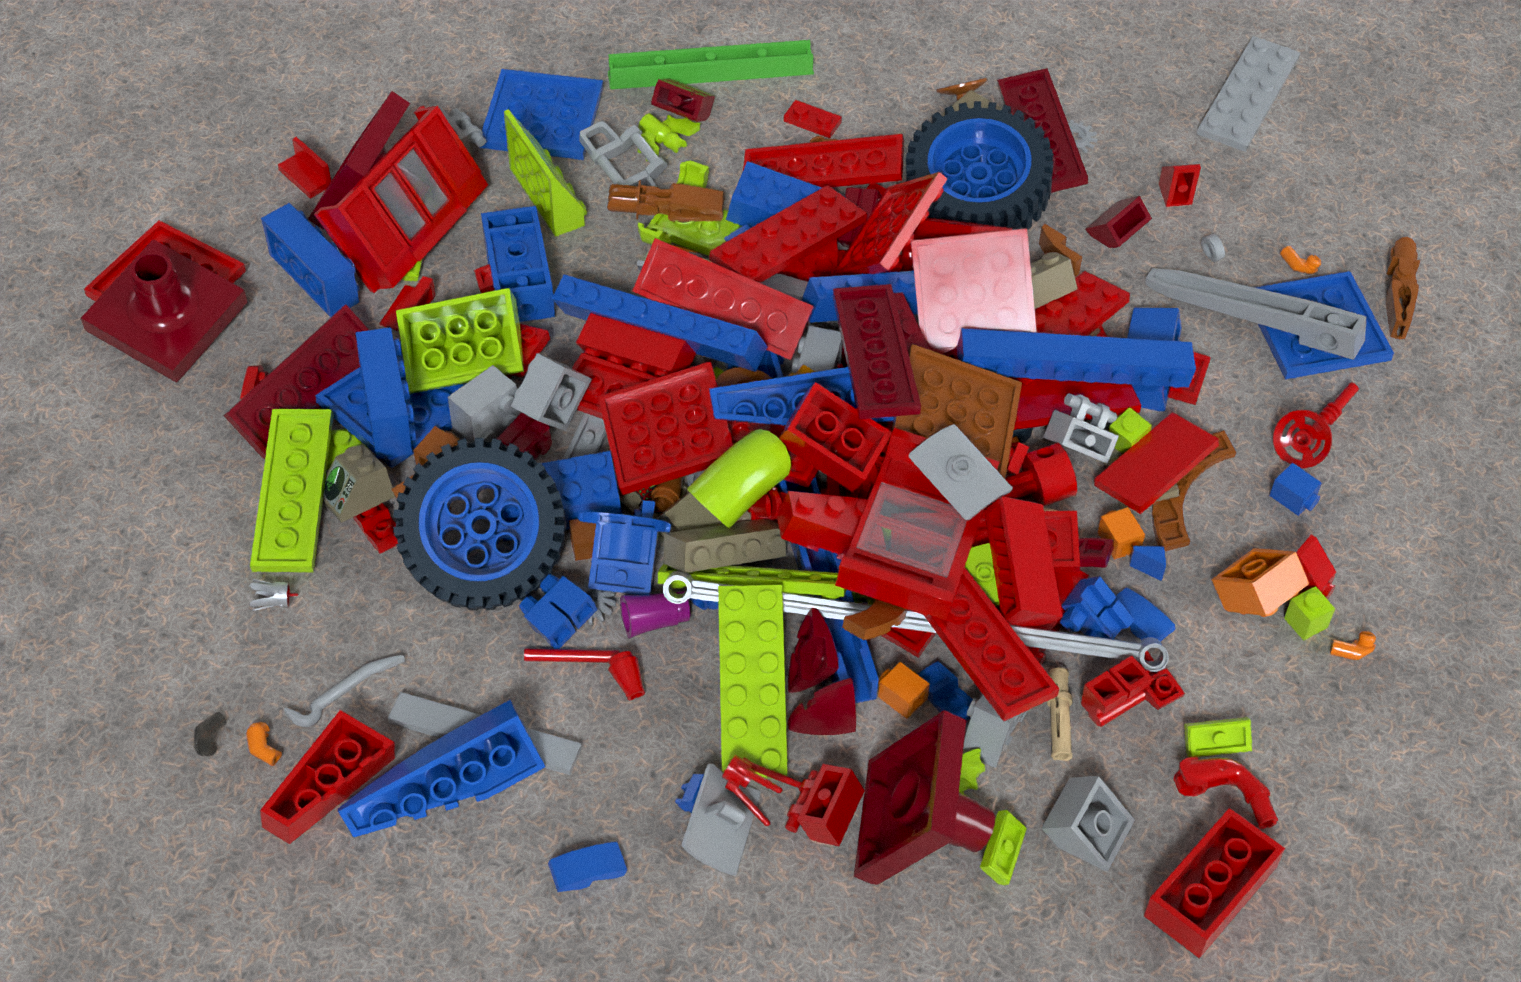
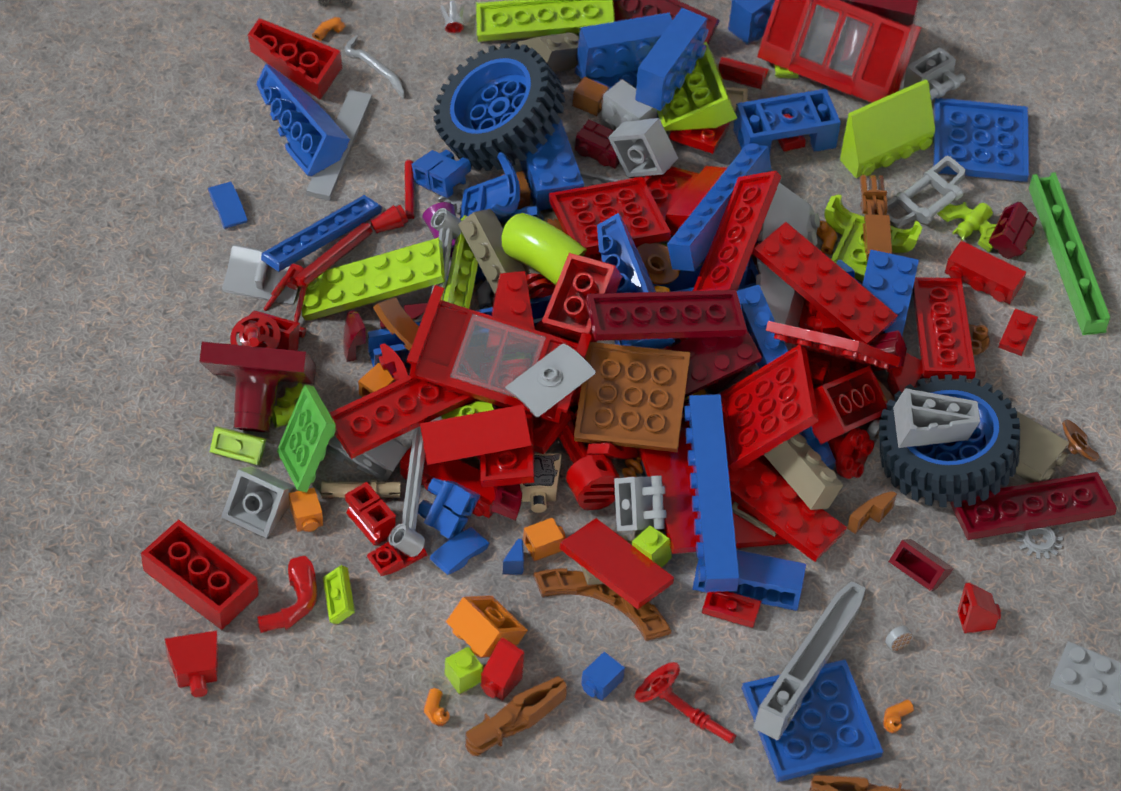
camera: 85 degrees right, 0 degrees up
(445, 330) = (671, 59): none -> blue brick
(660, 746) = (321, 233): none -> blue tile
(699, 729) = (333, 255): none -> red axle
(737, 130) = (985, 272): none -> red brick
(860, 804) = (253, 332): none -> red dish
(896, 655) = (392, 362): none -> red slope
(981, 168) = (933, 418): none -> light grey wedge
(1025, 746) = (306, 438): none -> bright green plate
(1102, 763) = (306, 510): none -> orange brick
(1334, 890) = (194, 660): none -> red torso
(1352, 564) = (516, 715): none -> dark orange arm

